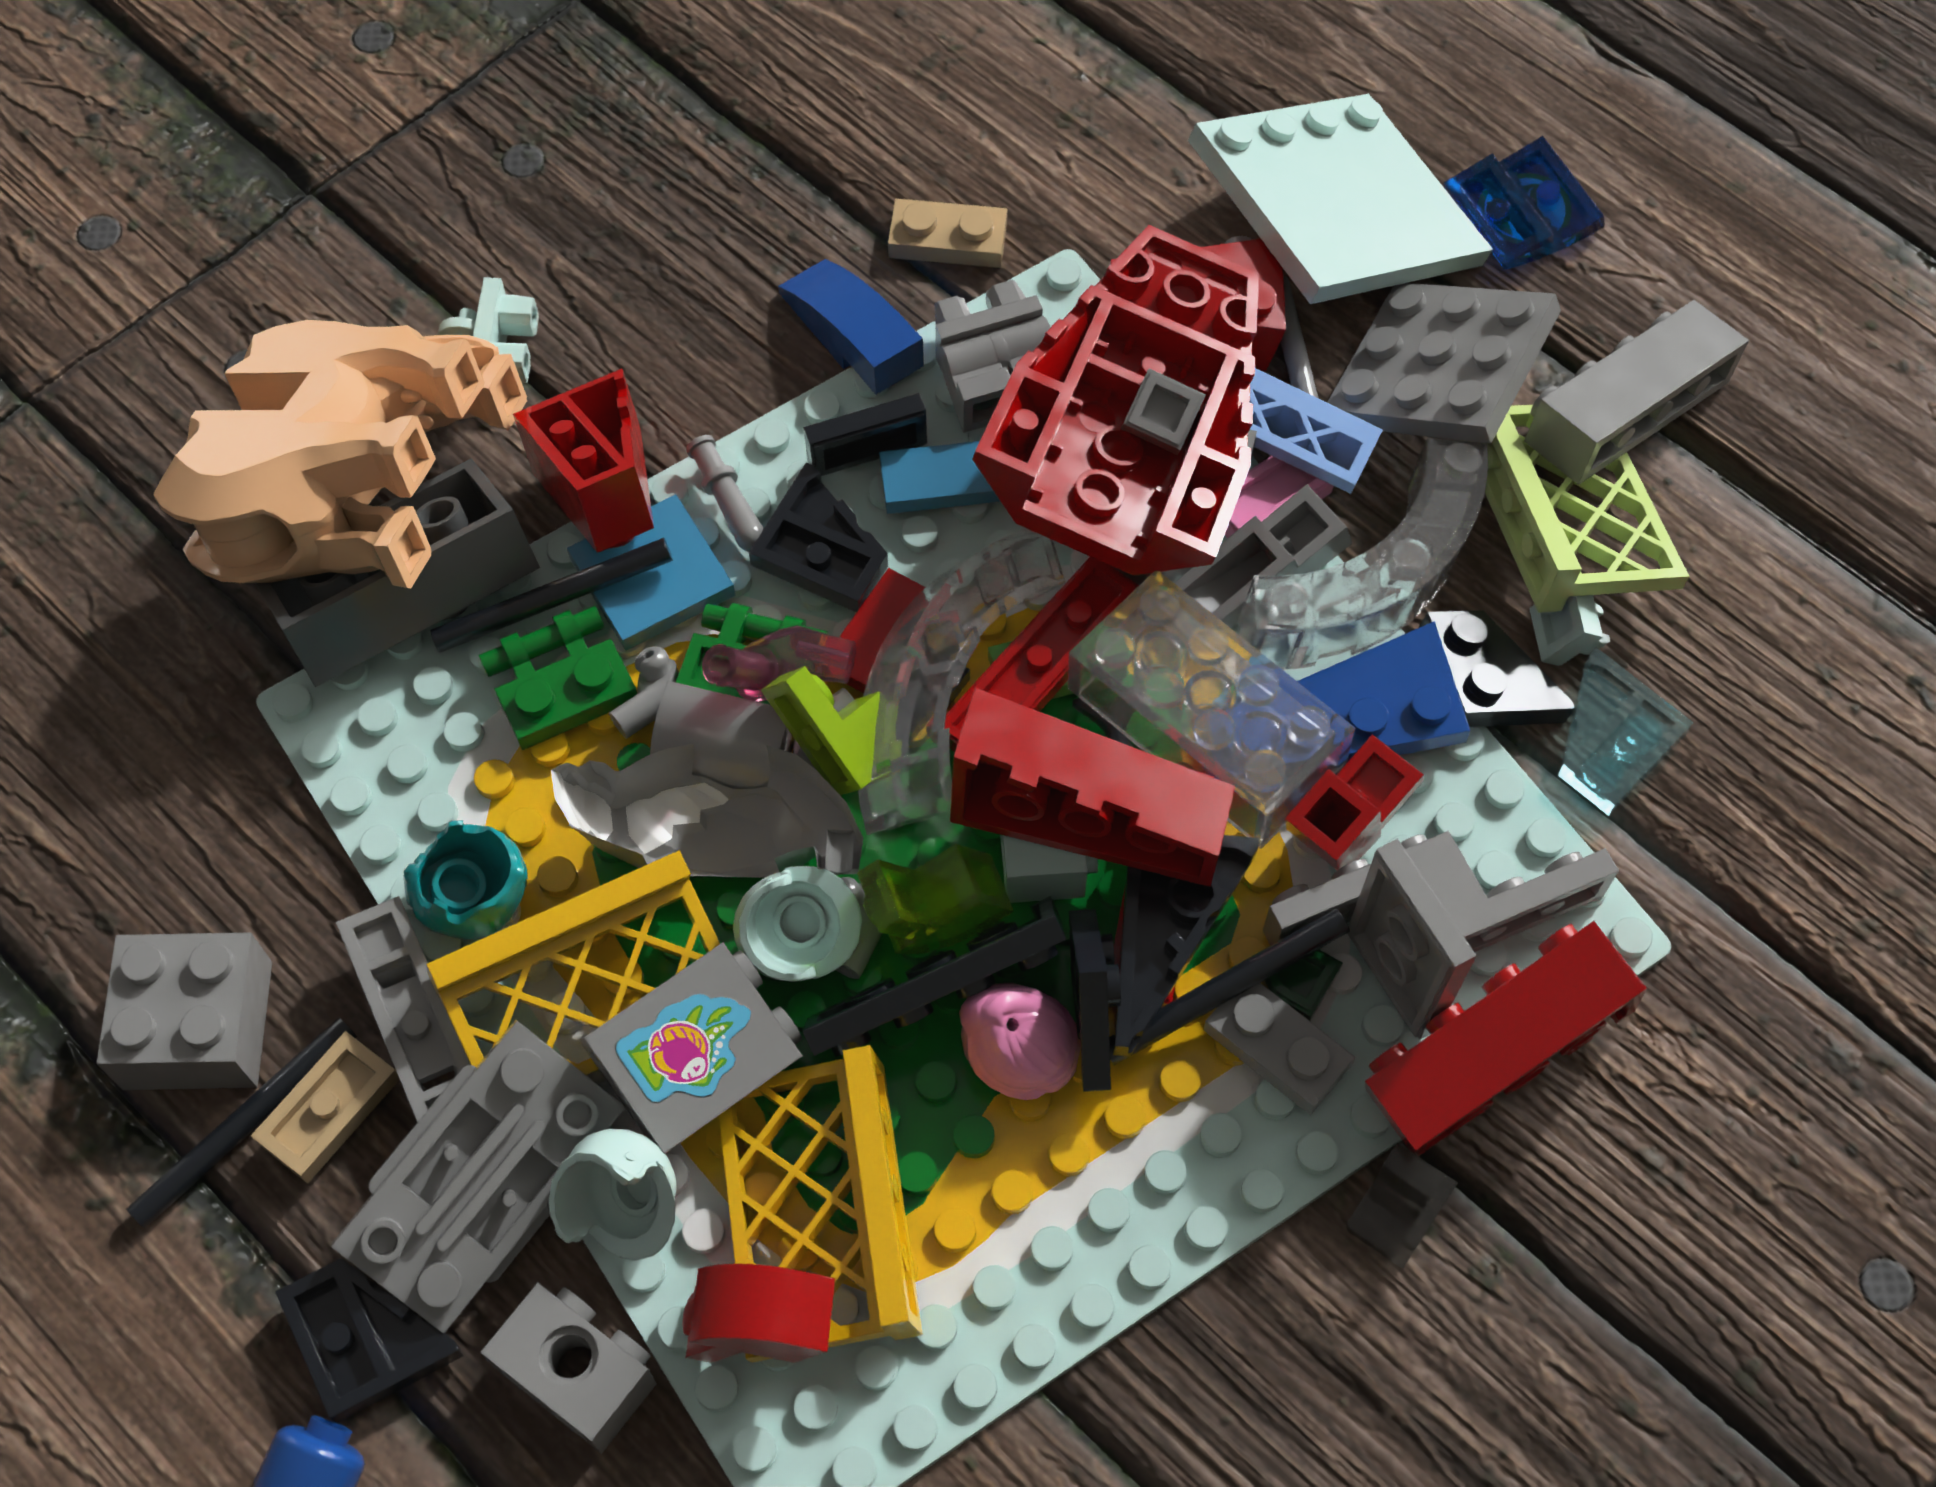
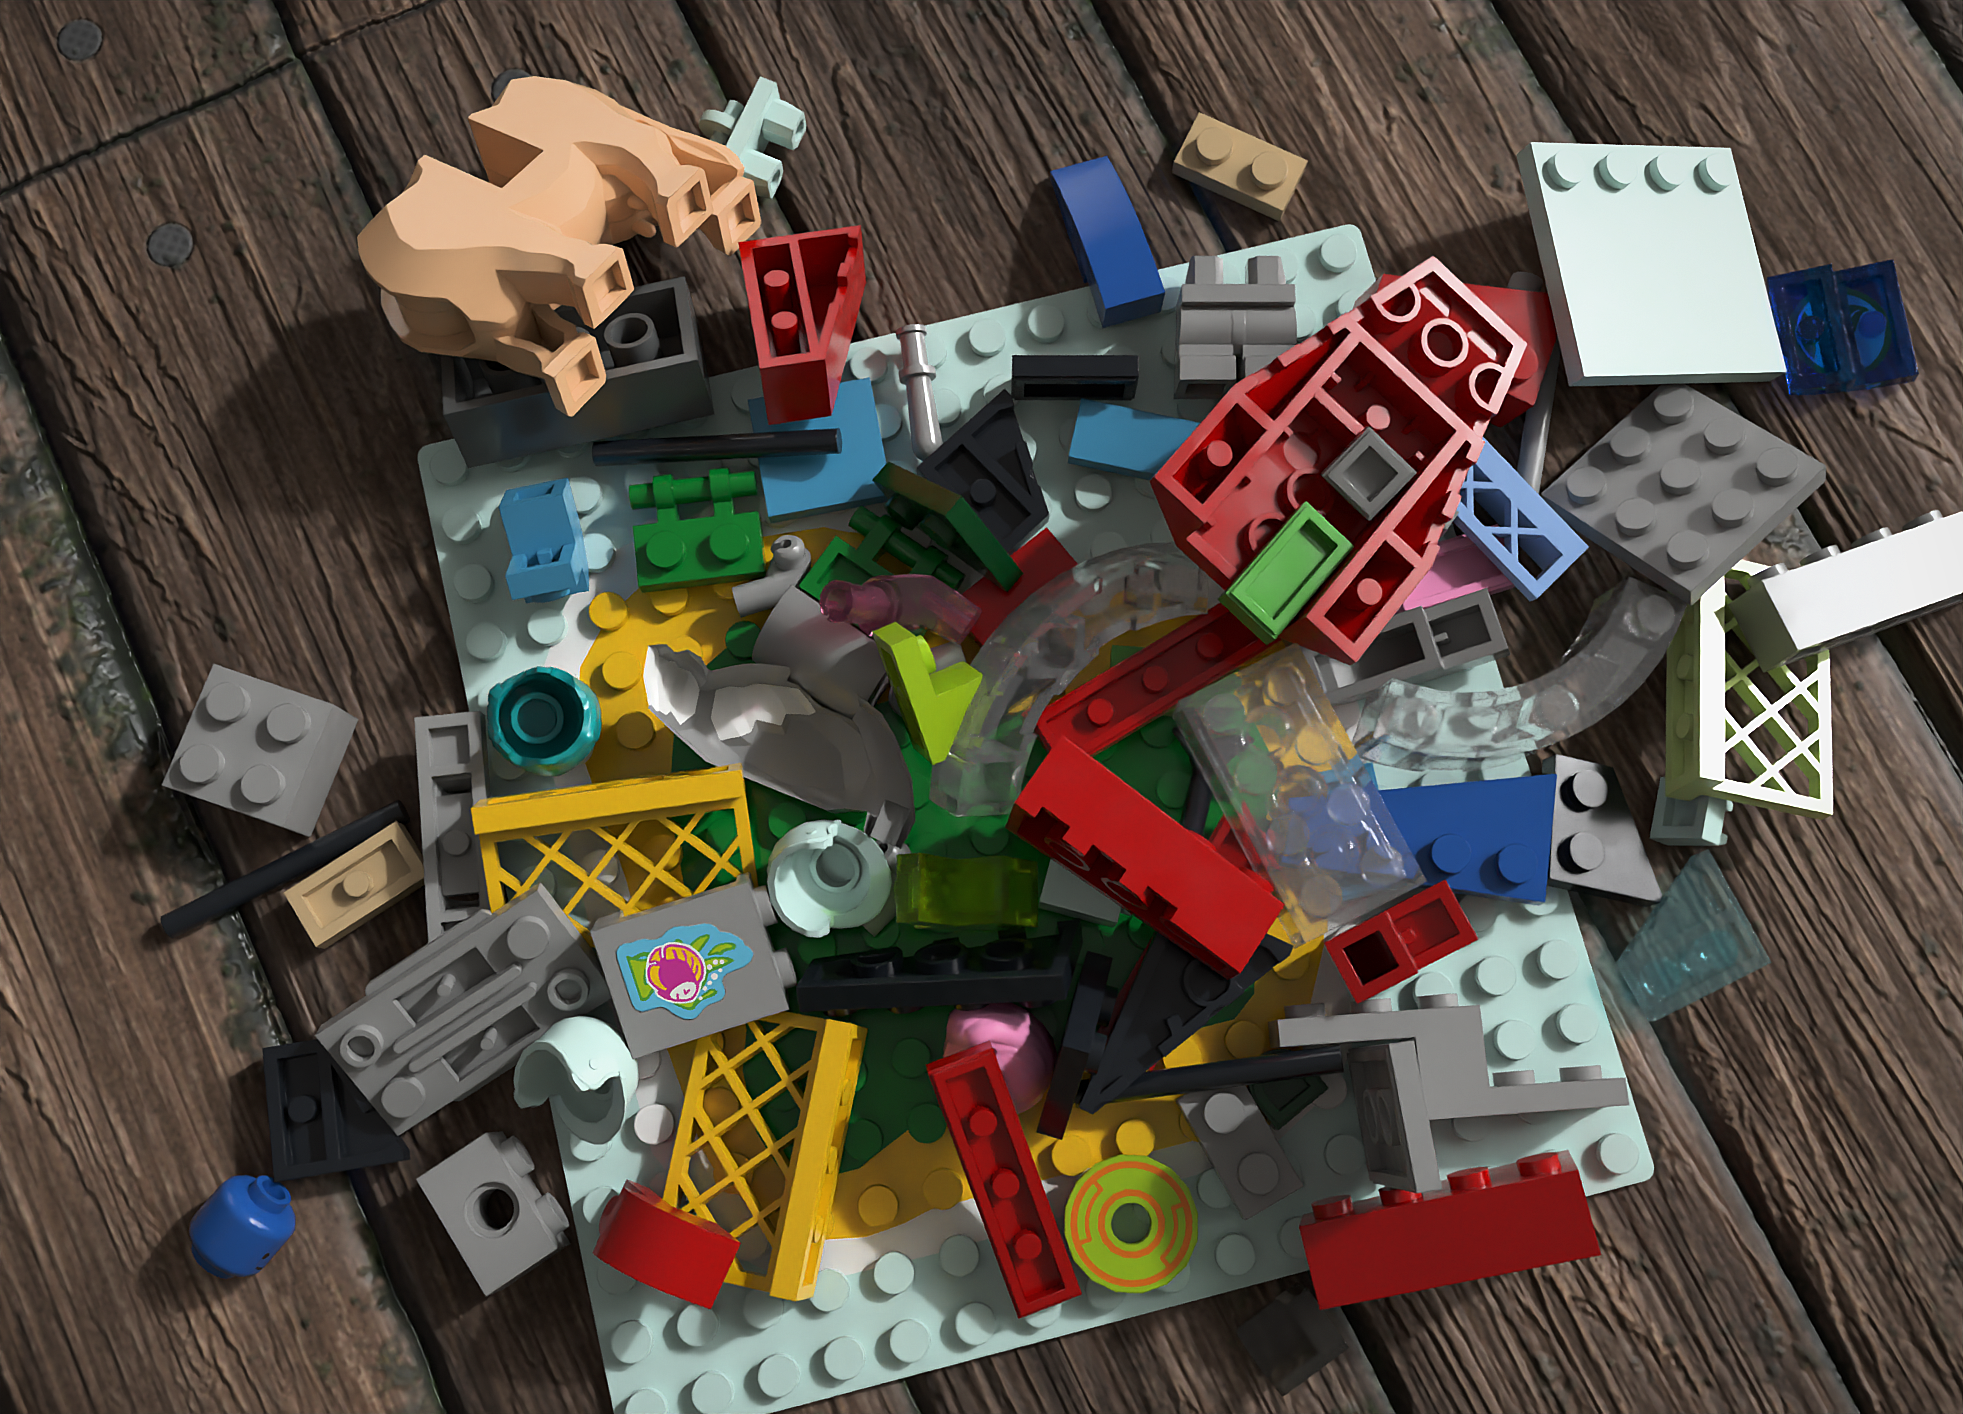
camera: 20 degrees right, 15 degrees up
(415, 726) = (544, 542): none -> dark azure brick
(795, 582) = (947, 522): none -> dark green wing
(1070, 1142) = (1003, 1179): none -> red tile
(1123, 512) = (1286, 573): none -> bright green tile
(1216, 1113) = (1171, 1231): none -> lime tile

